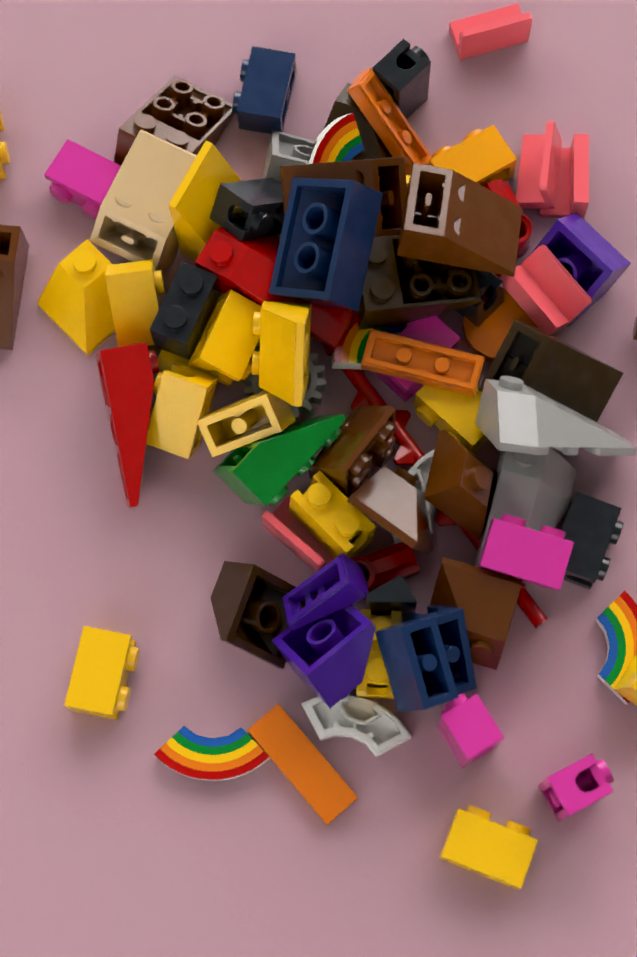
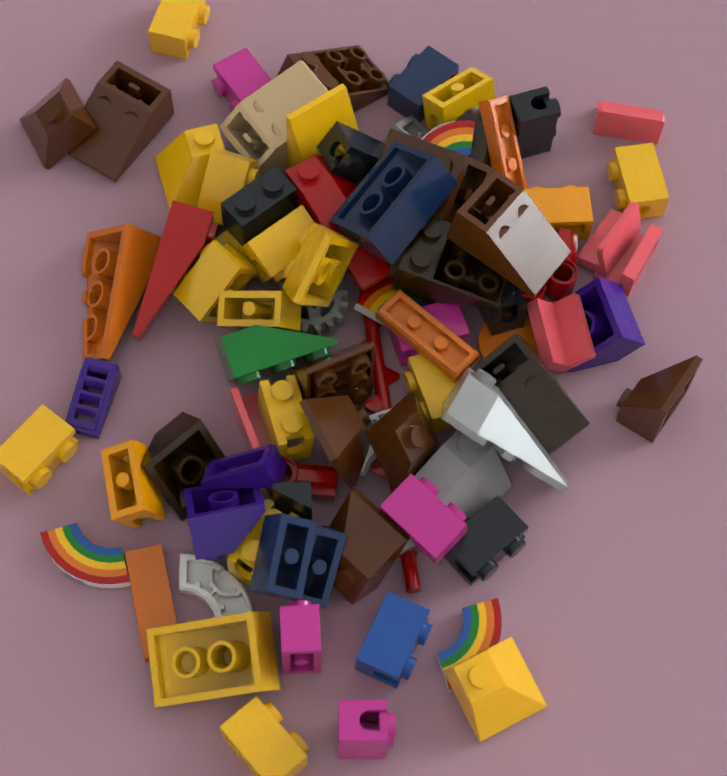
camera: 20 degrees right, 10 degrees down
(76, 451) = (117, 273): none -> orange wedge
(118, 557) = (97, 375): none -> dark purple slope
(218, 665) = (129, 487): none -> light orange brick
(314, 91) = (456, 96): none -> yellow brick
(395, 793) = (213, 659): none -> yellow slope
(534, 91) = (638, 179): none -> yellow brick
(552, 683) = (392, 640): none -> blue brick

